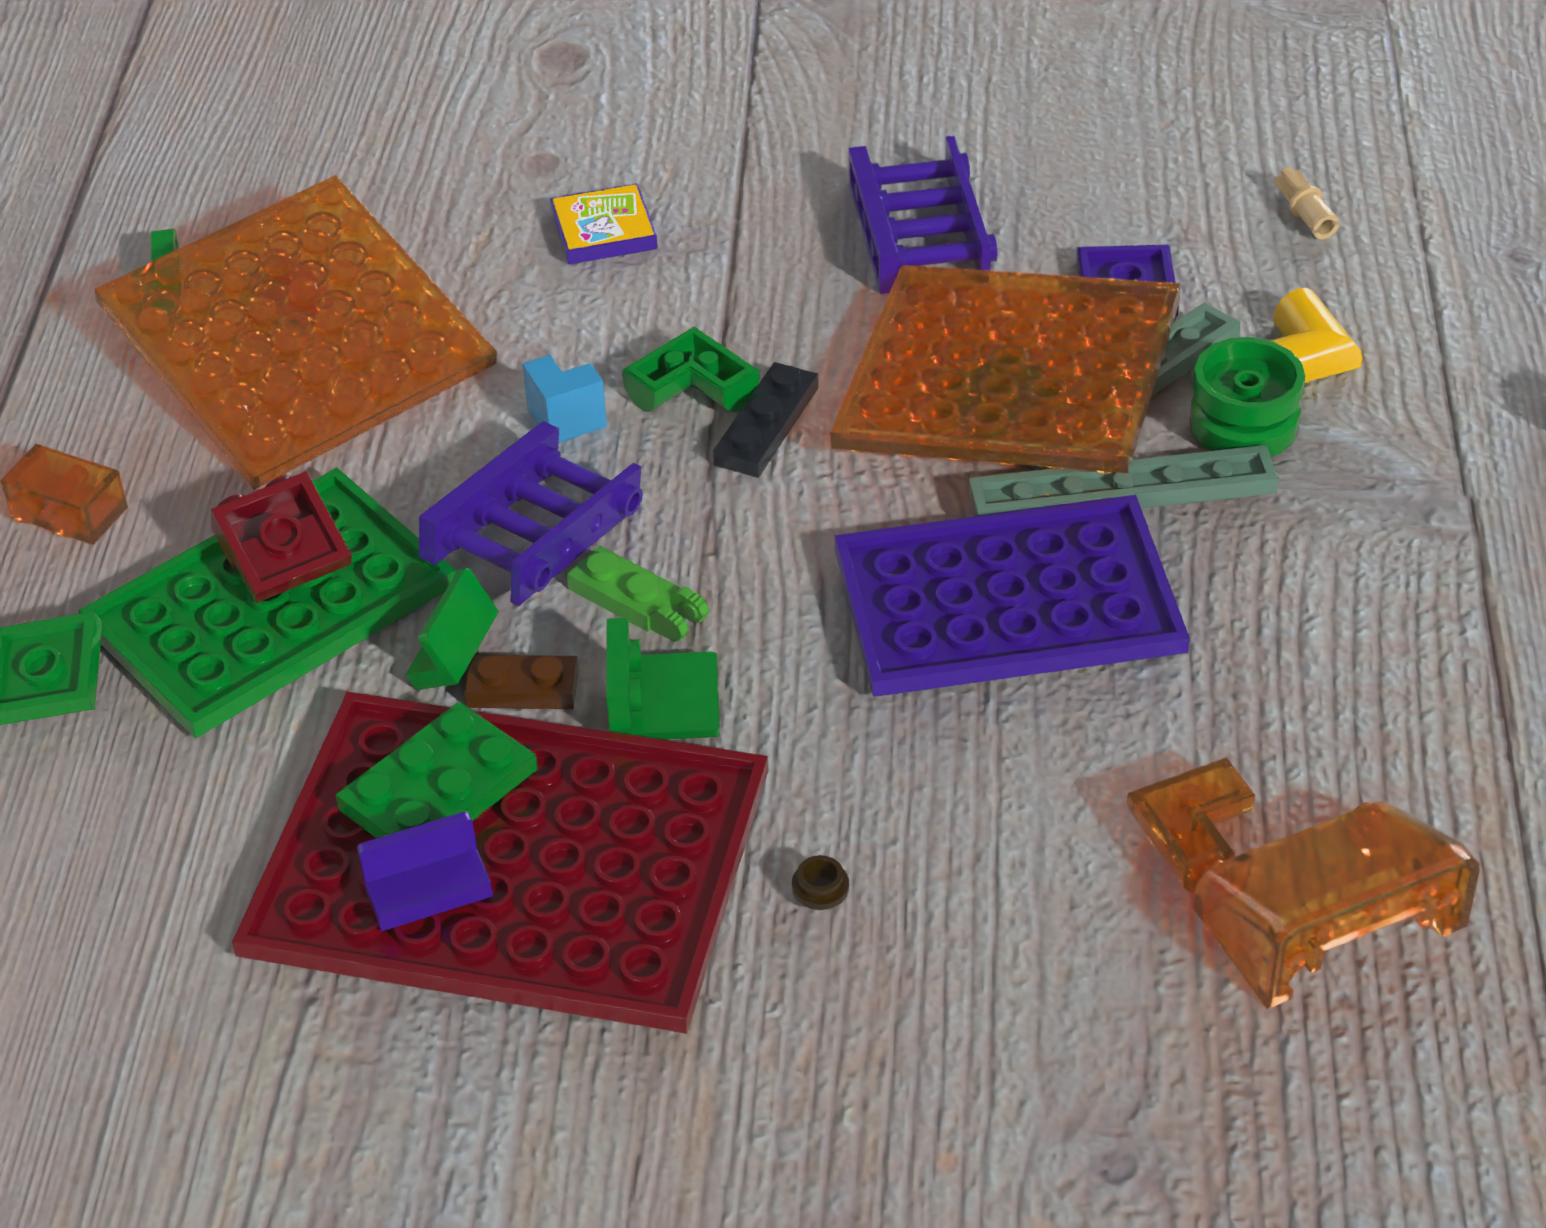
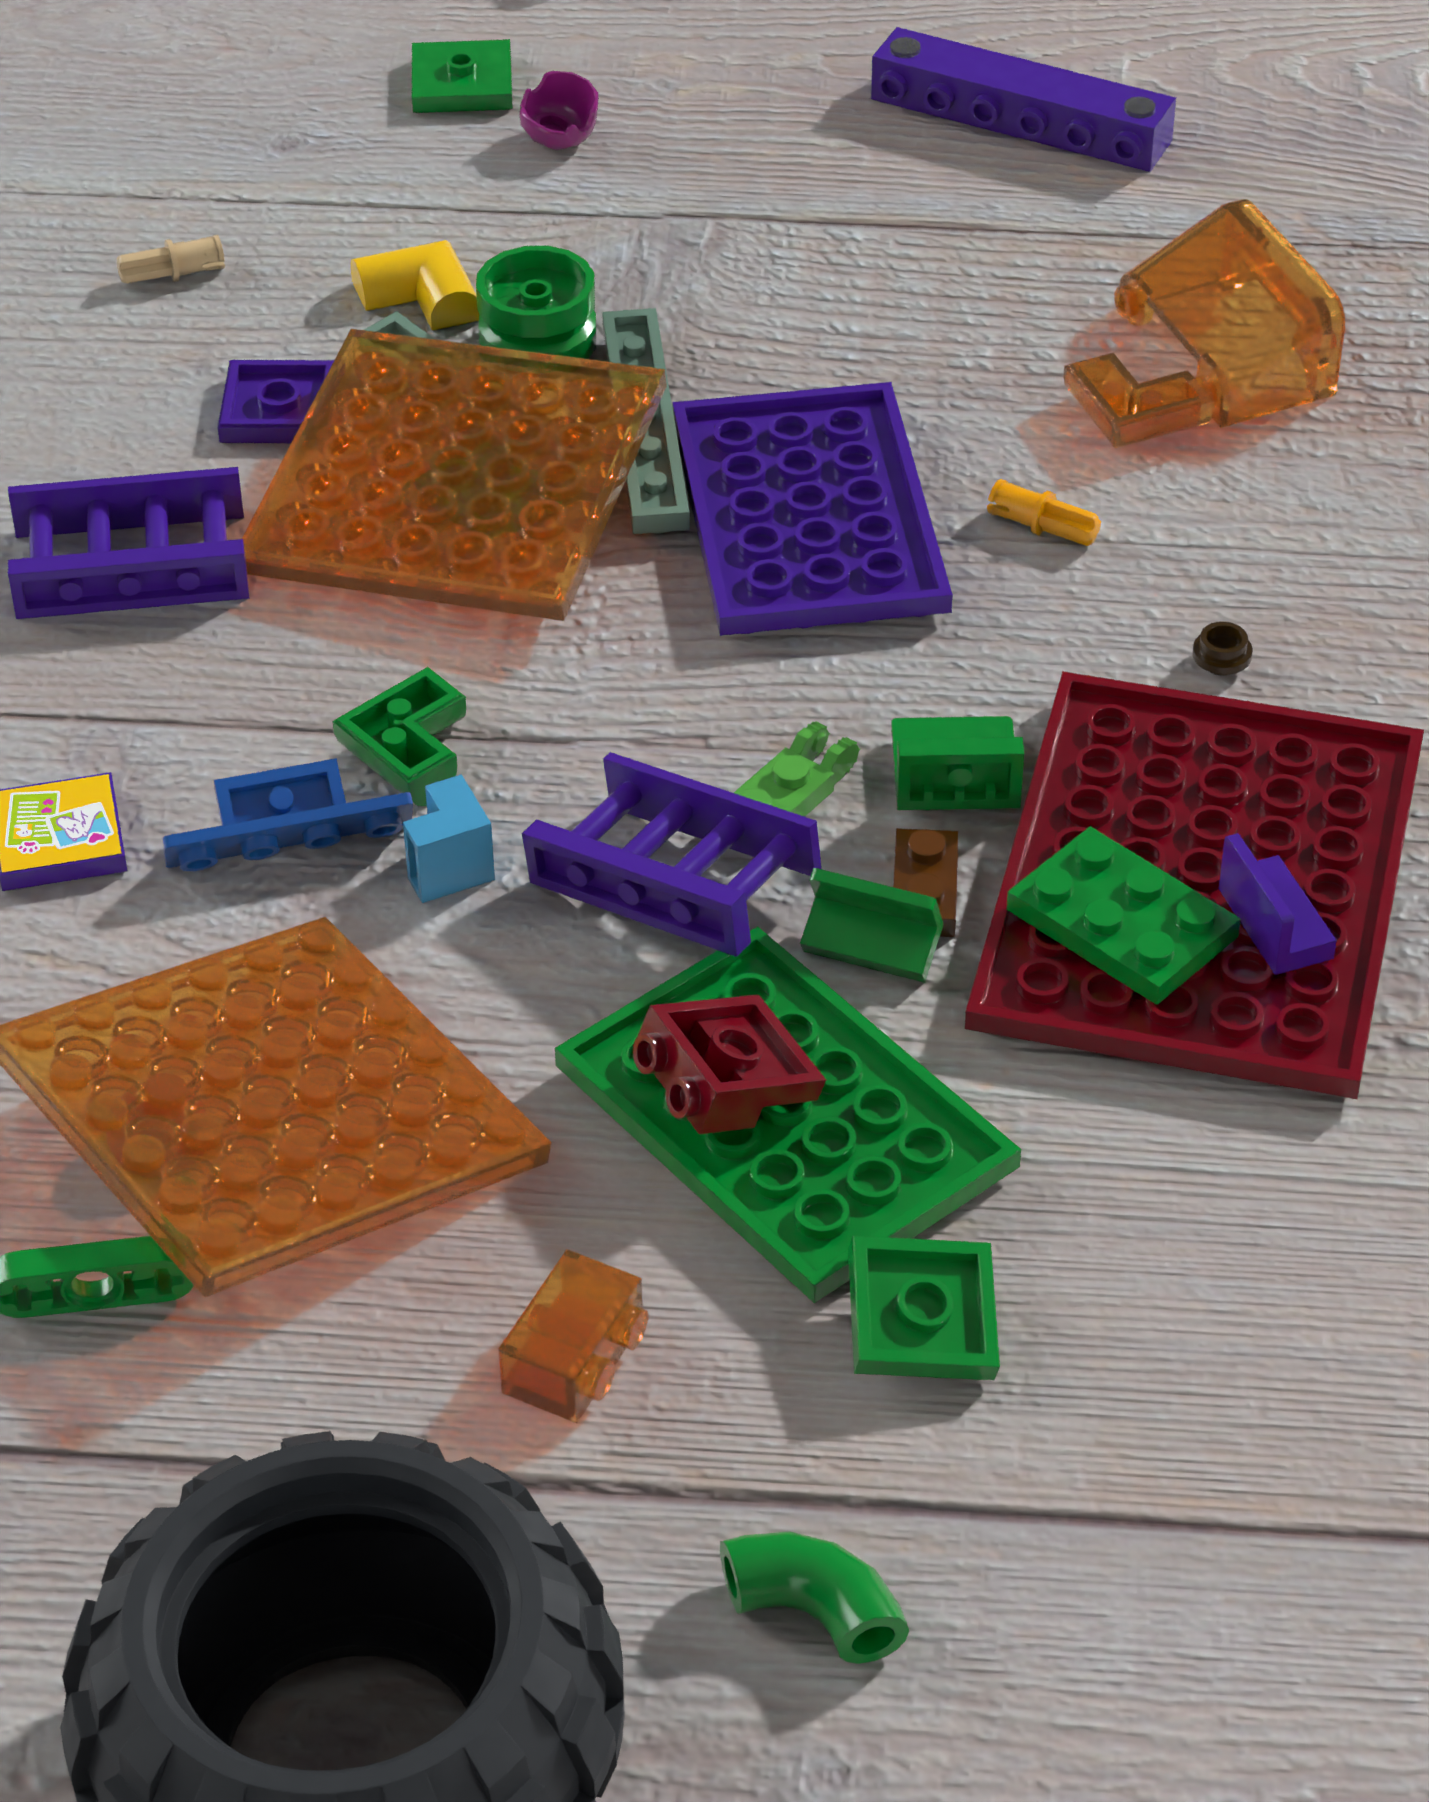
camera: 90 degrees left, 0 degrees up
(605, 319) = (284, 810): none -> blue bracket
(765, 419) = (493, 686): black plate -> none
(1016, 755) = (1043, 513): none -> light orange axle

